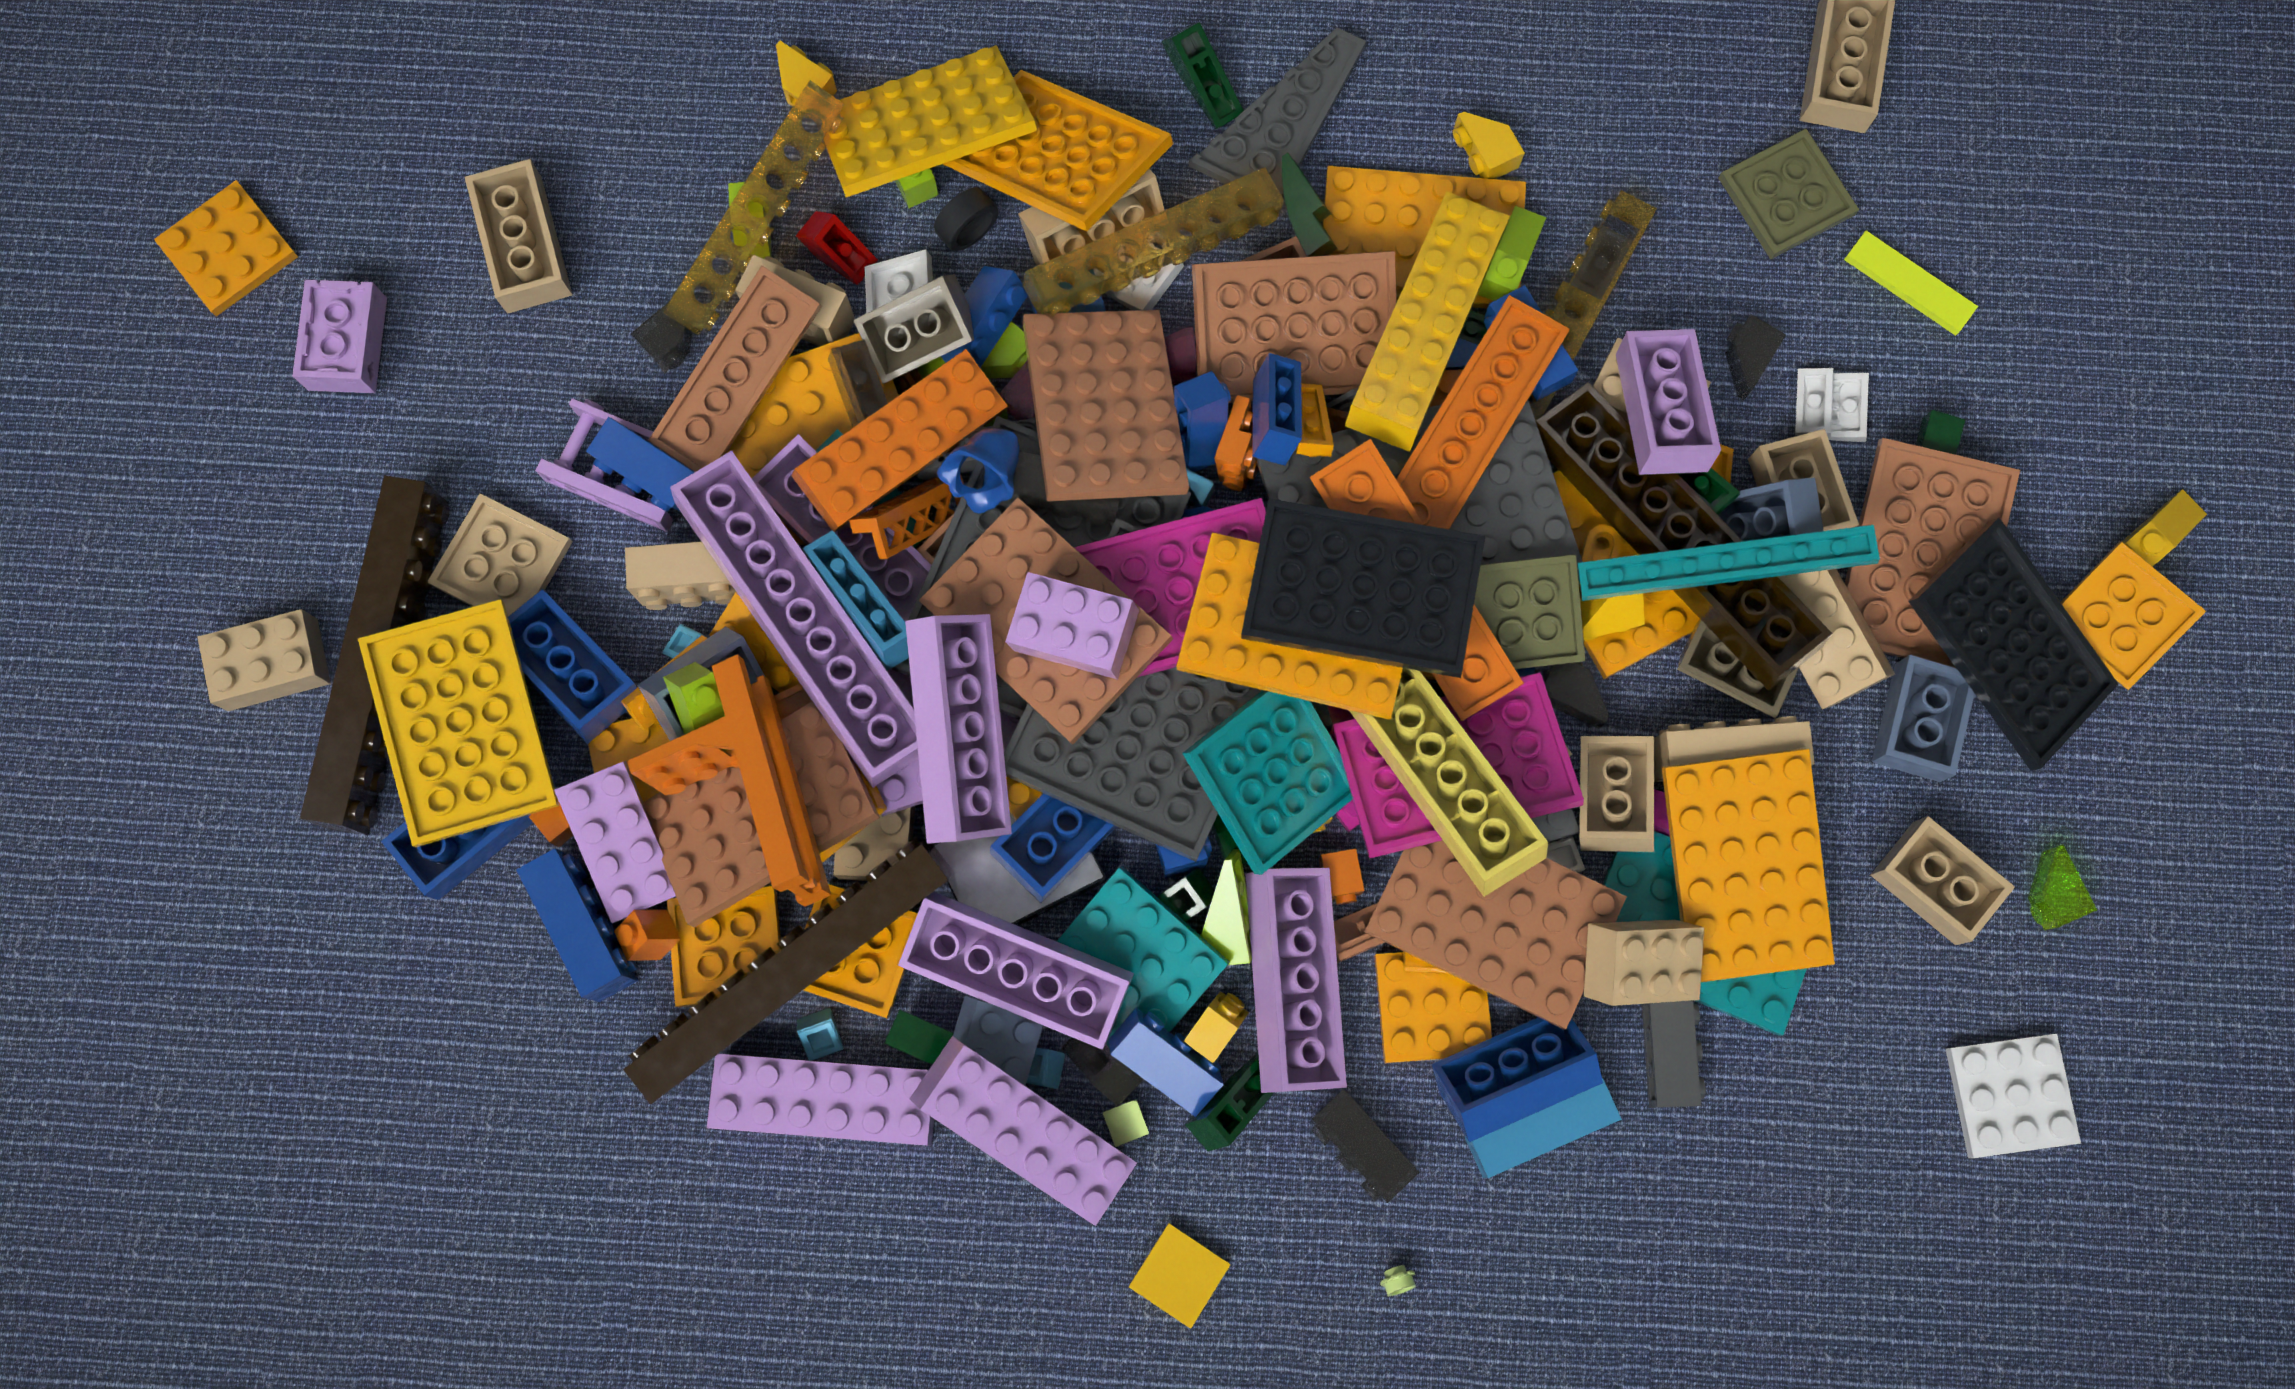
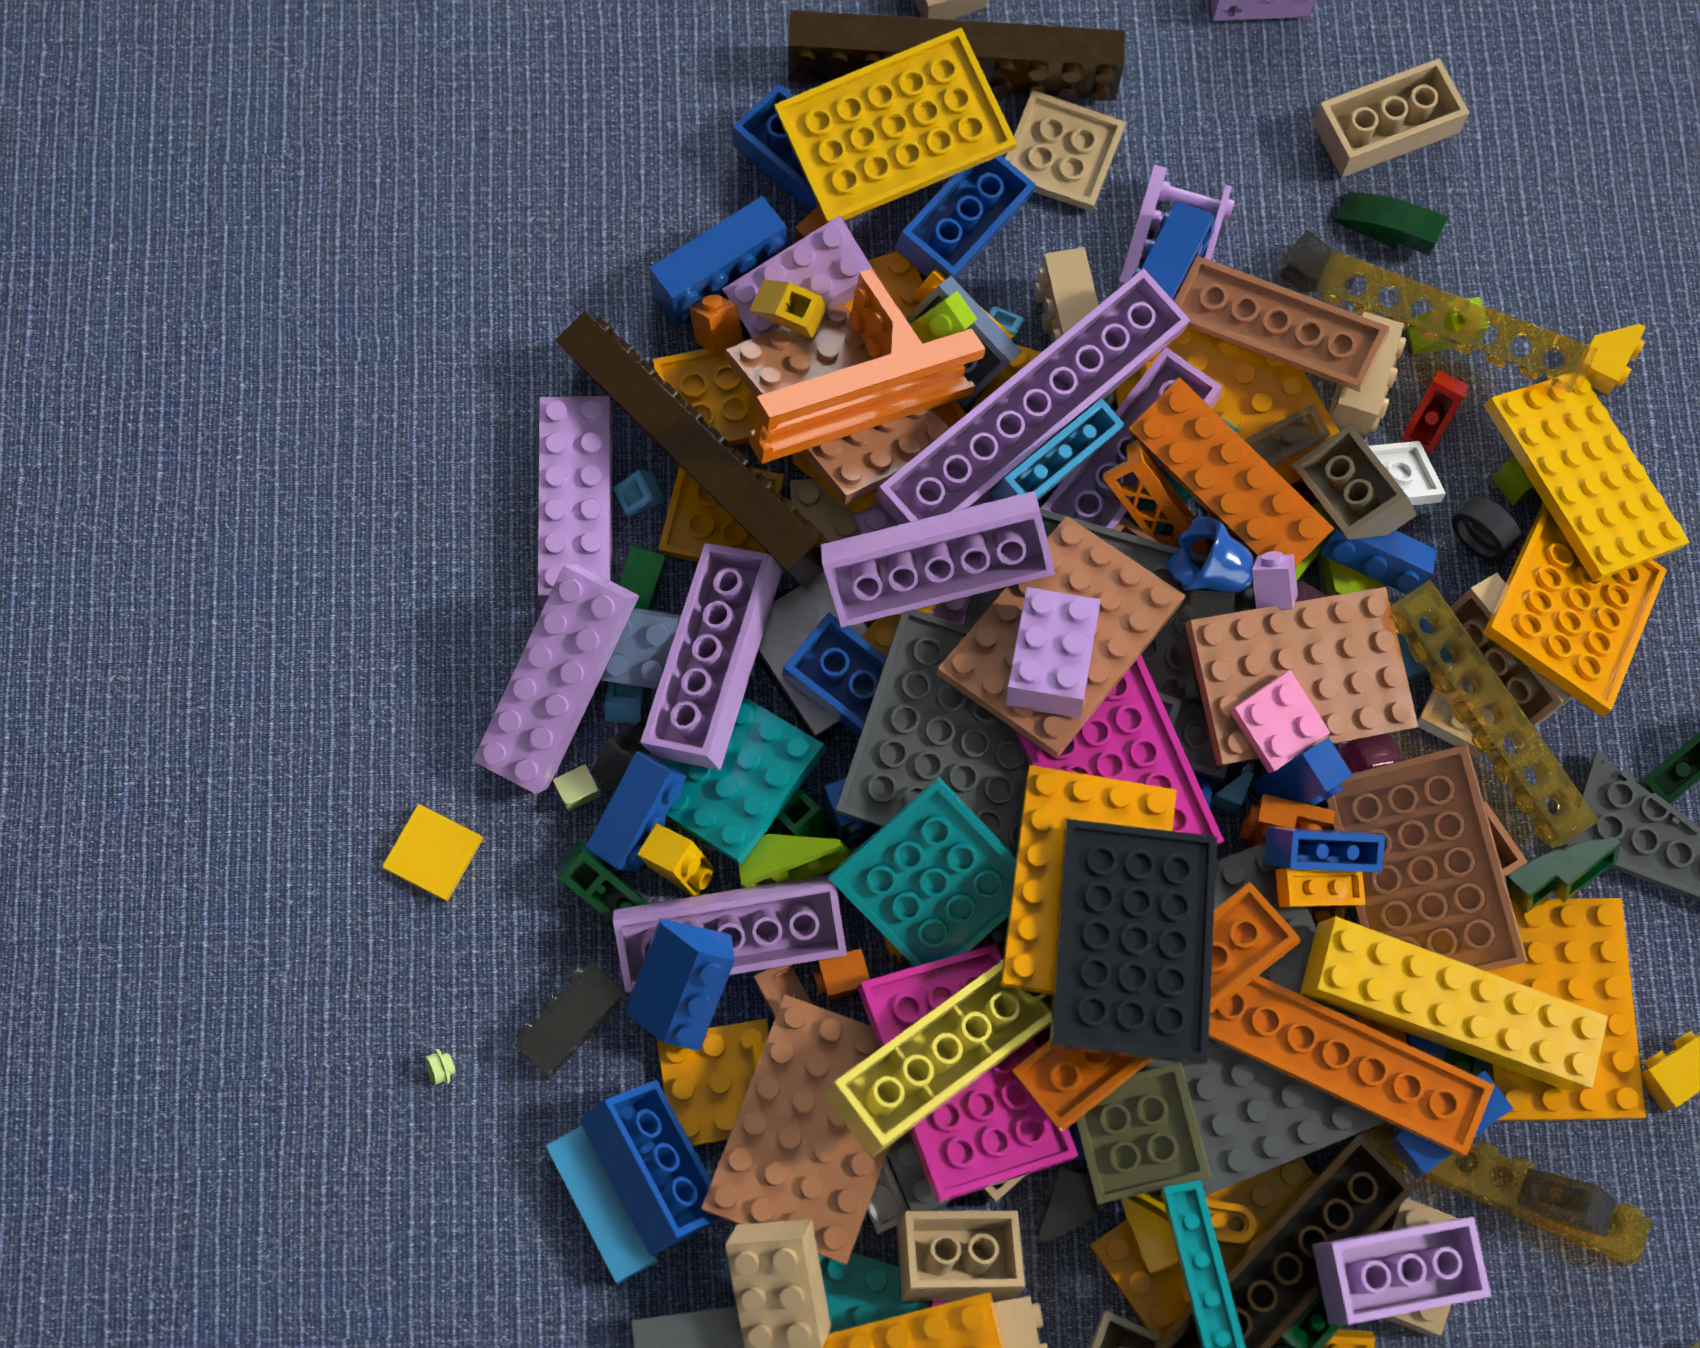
camera: 80 degrees right, 5 degrees down
(629, 254) = (1391, 221): none -> dark green slope
(649, 854) = (789, 306): none -> yellow slope
(1012, 412) = (1275, 580): none -> lavender brick
(1153, 428) = (1279, 721): none -> bright pink plate
(1348, 1028) = (681, 982): none -> blue slope
(1512, 254) = (1554, 1102): lime slope -> none

